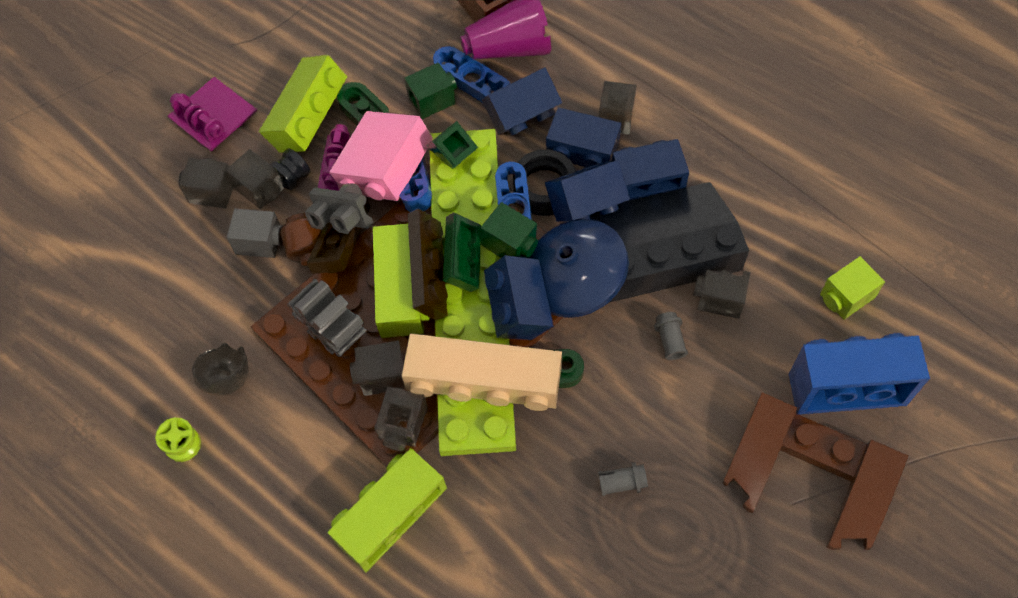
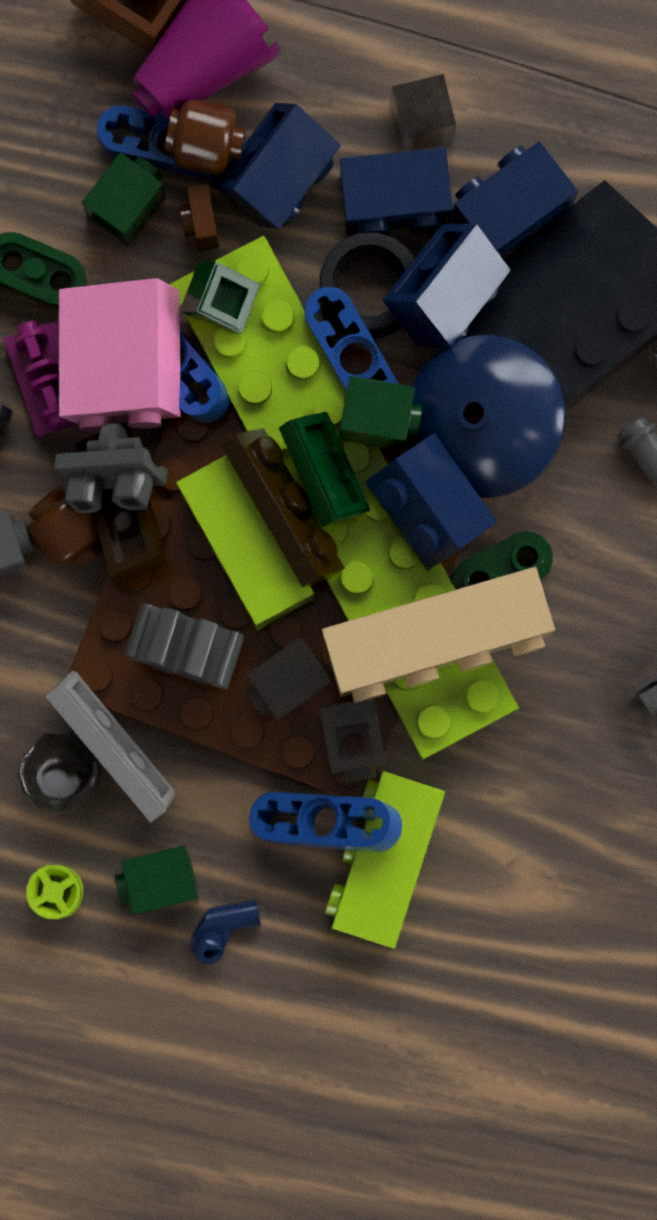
camera: 30 degrees left, 20 degrees up
(242, 459) = (157, 880): none -> dark green brick
(257, 365) = (111, 745): none -> light grey tile
(263, 506) = (217, 927): none -> dark blue arm
(366, 474) = (342, 836): none -> blue beam
(467, 111) = (199, 218): none -> reddish brown plate
(487, 68) = (204, 136): none -> reddish brown head

